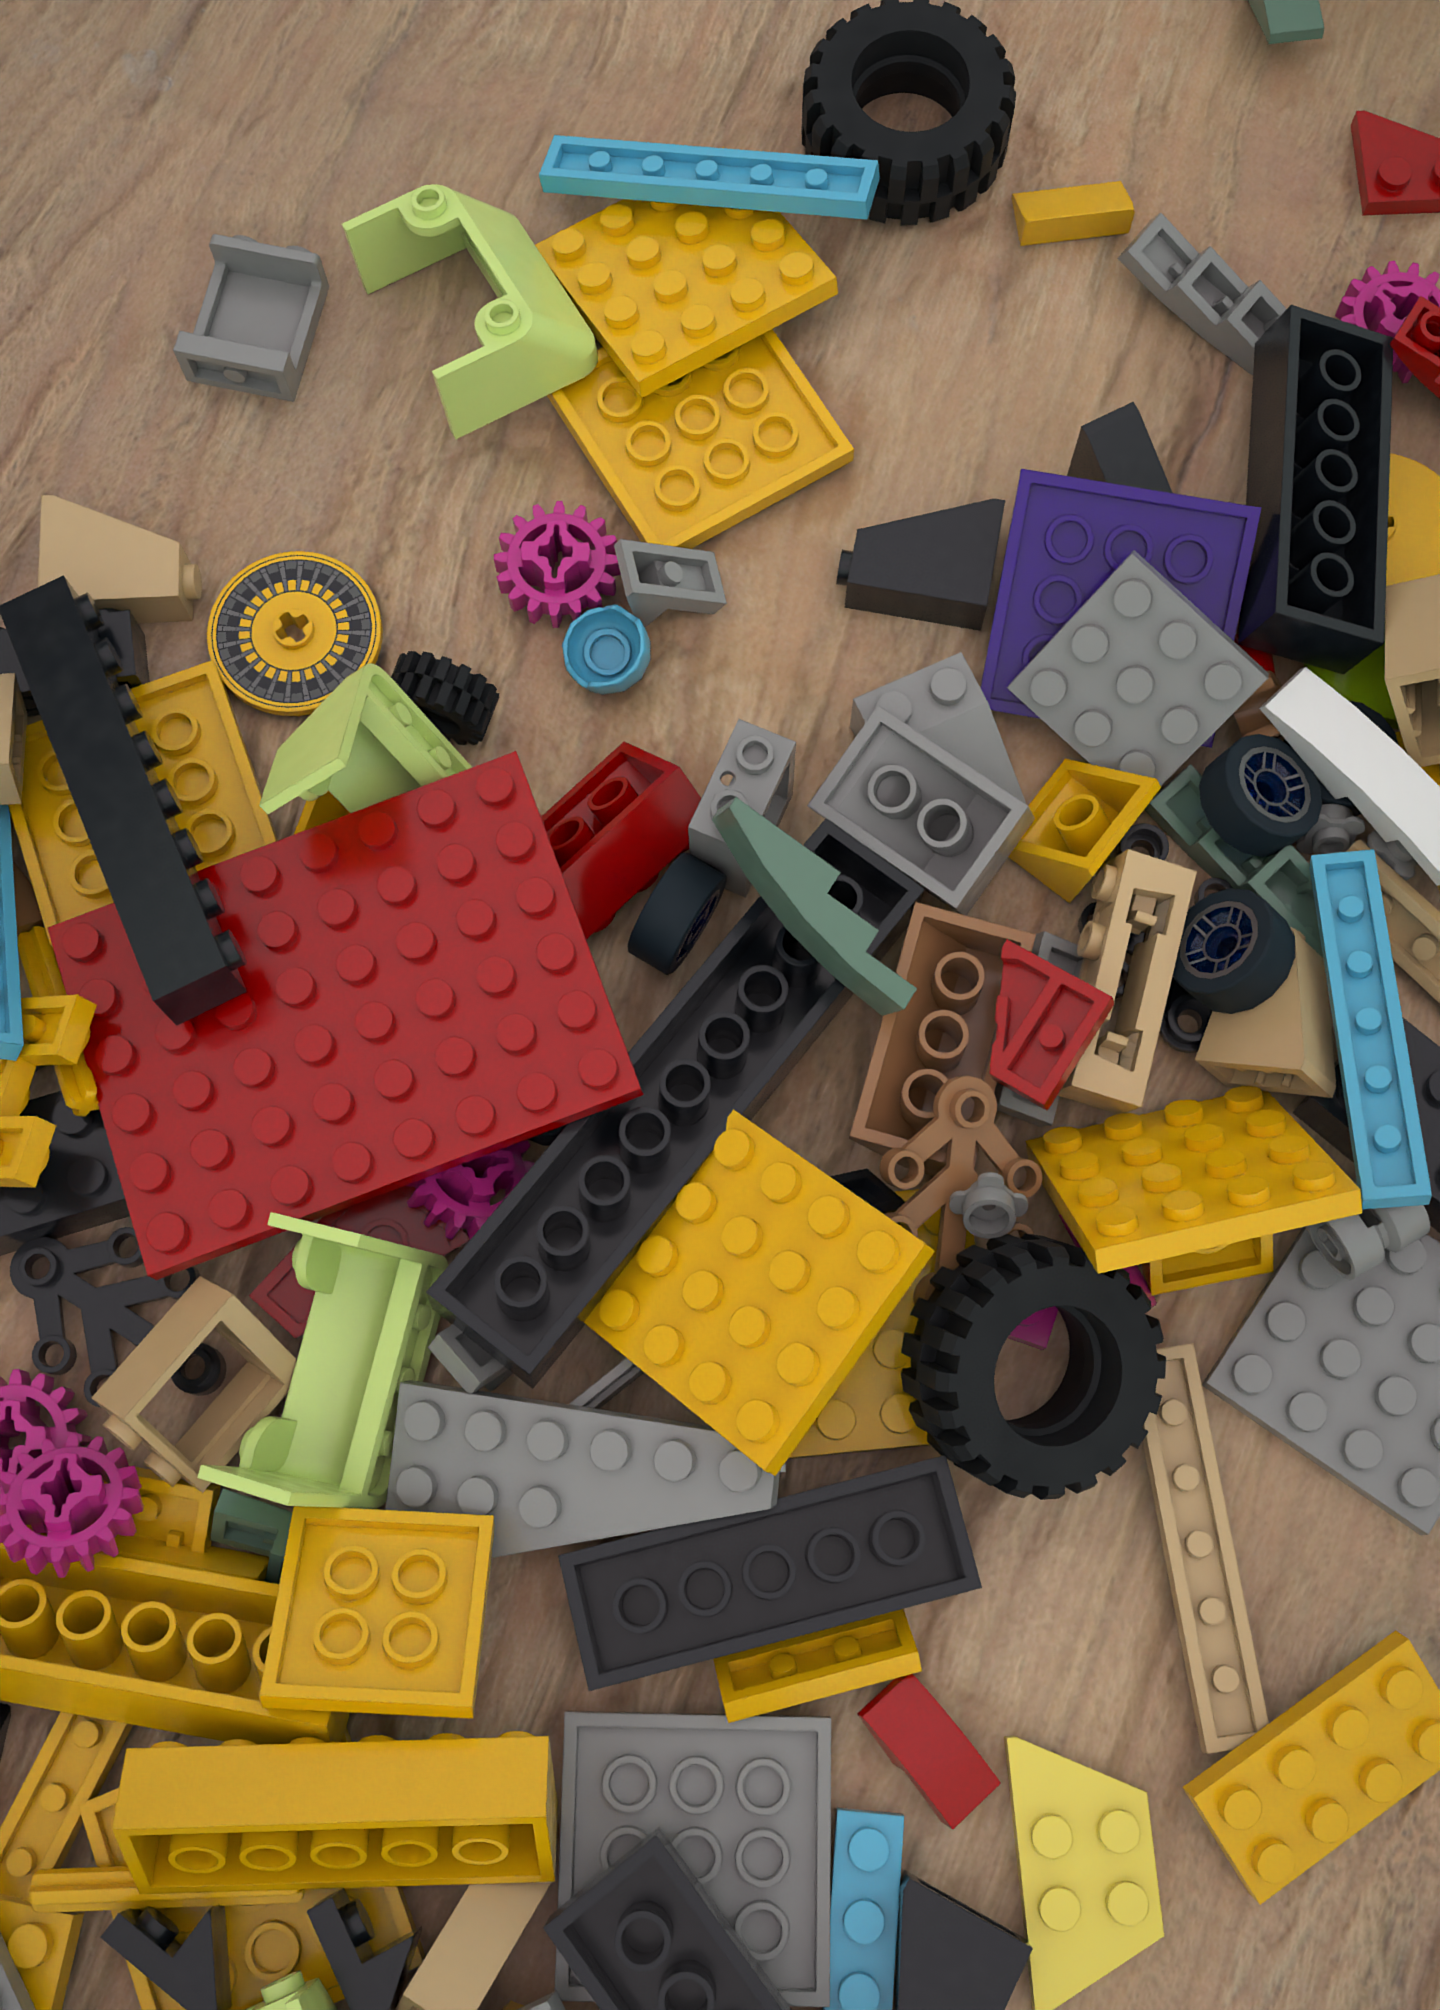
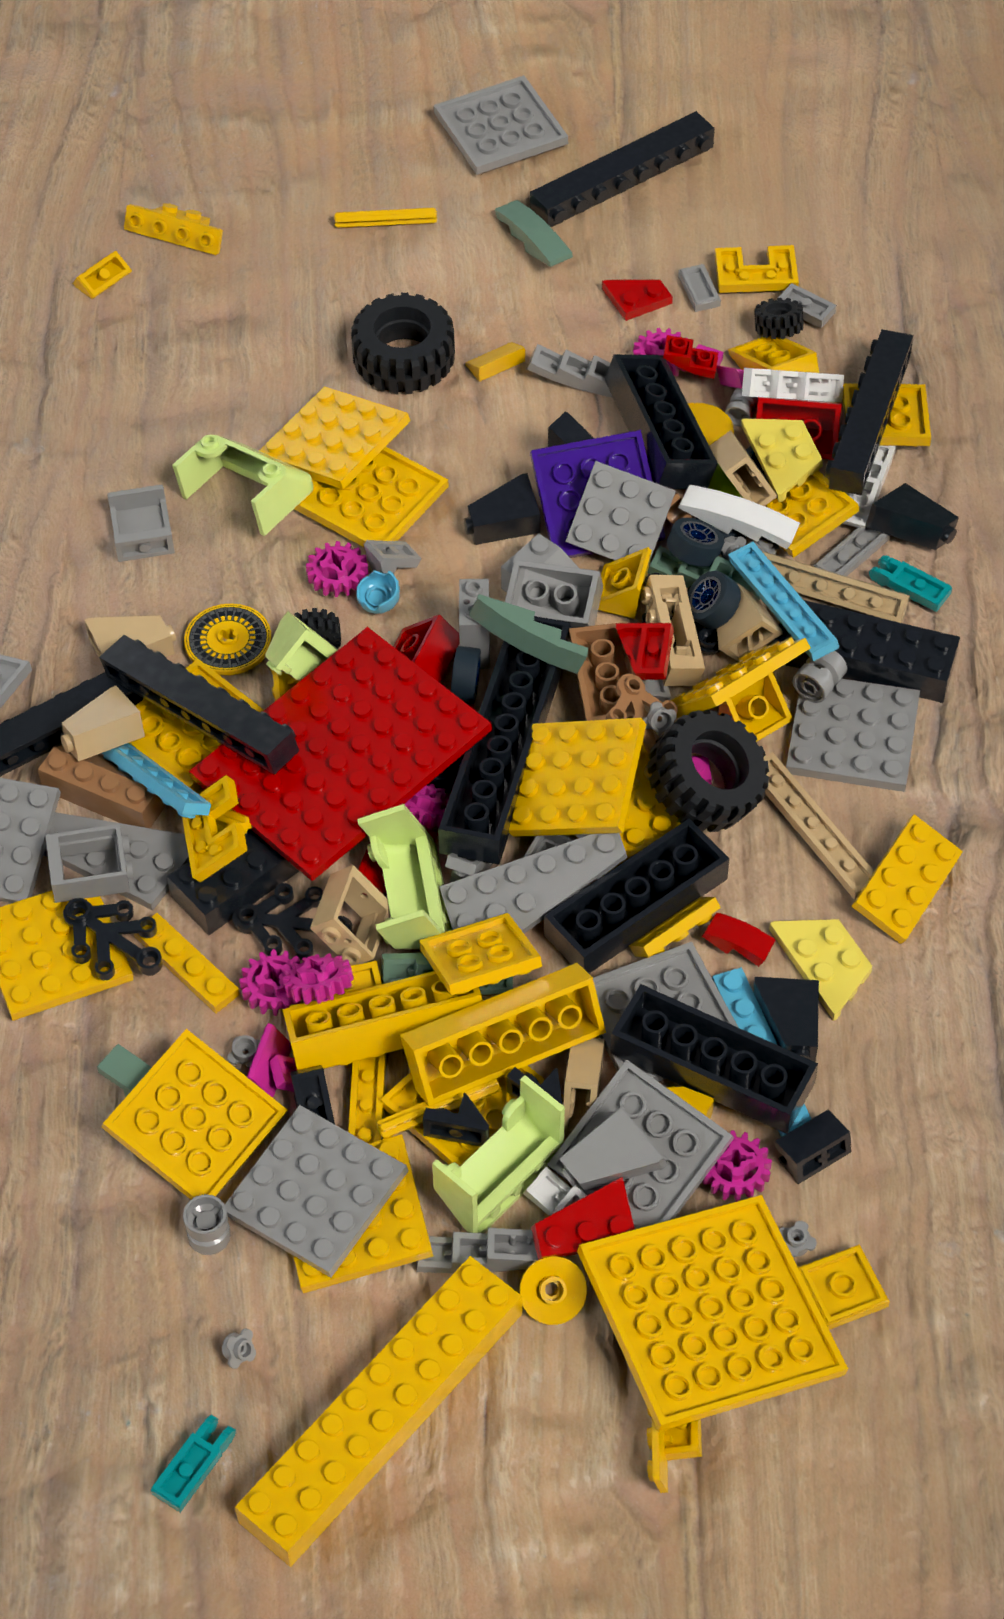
camera: 25 degrees left, 20 degrees down
(710, 176) = (328, 394): medium azure plate -> none

